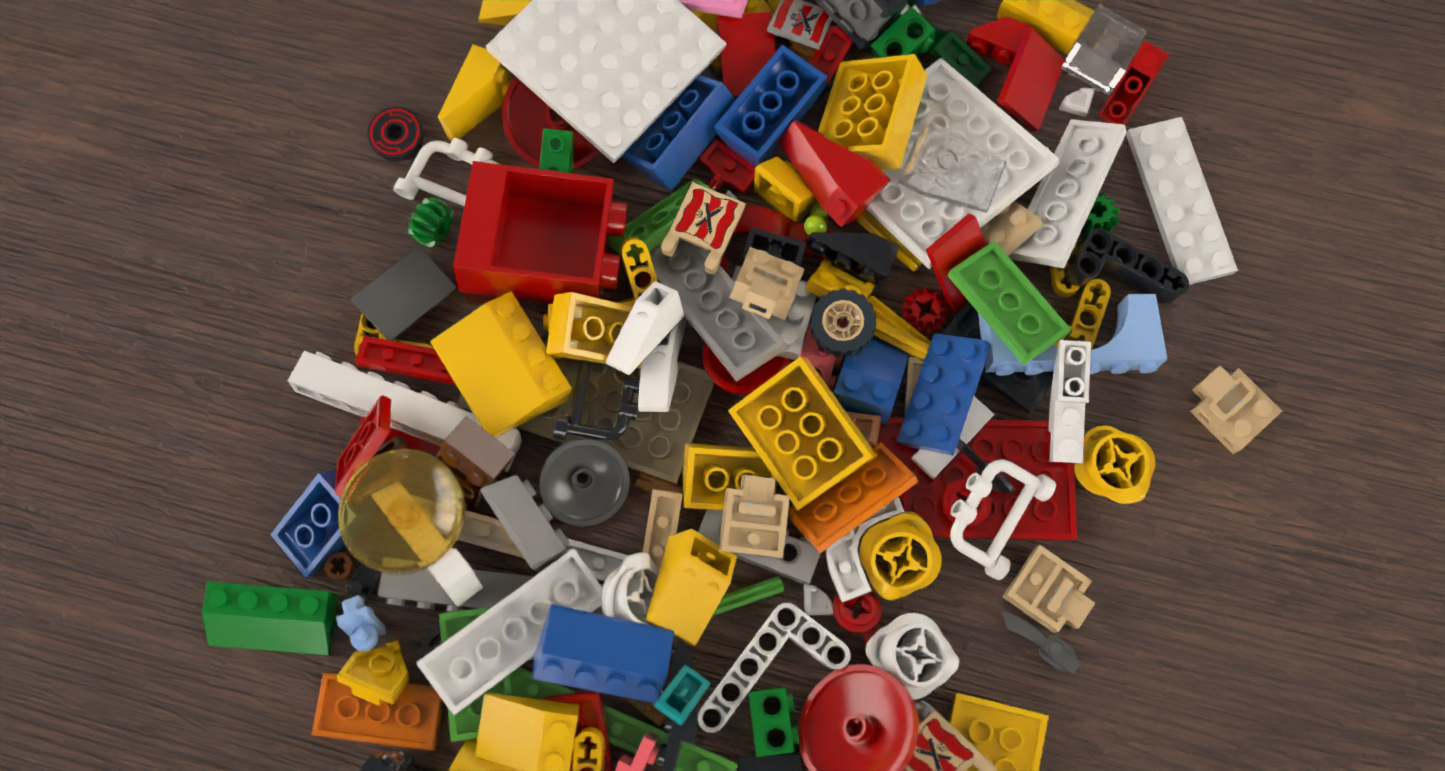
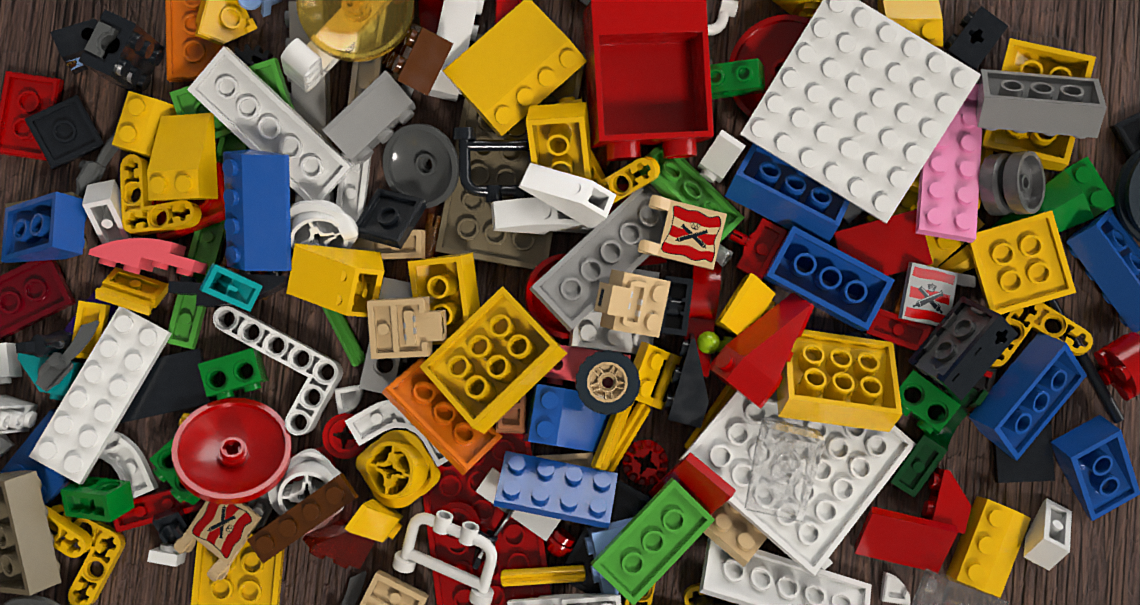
camera: 80 degrees right, 10 degrees up
(632, 185) = (720, 157): none -> white slope
(633, 521) = (390, 217): none -> black tile
(941, 661) = (302, 518): none -> reddish brown plate
(951, 586) = (375, 521): none -> yellow slope
(970, 626) = (339, 544): none -> clear red slope
(998, 404) = (560, 542): none -> red plate
(1028, 424) = (543, 575): none -> yellow axle

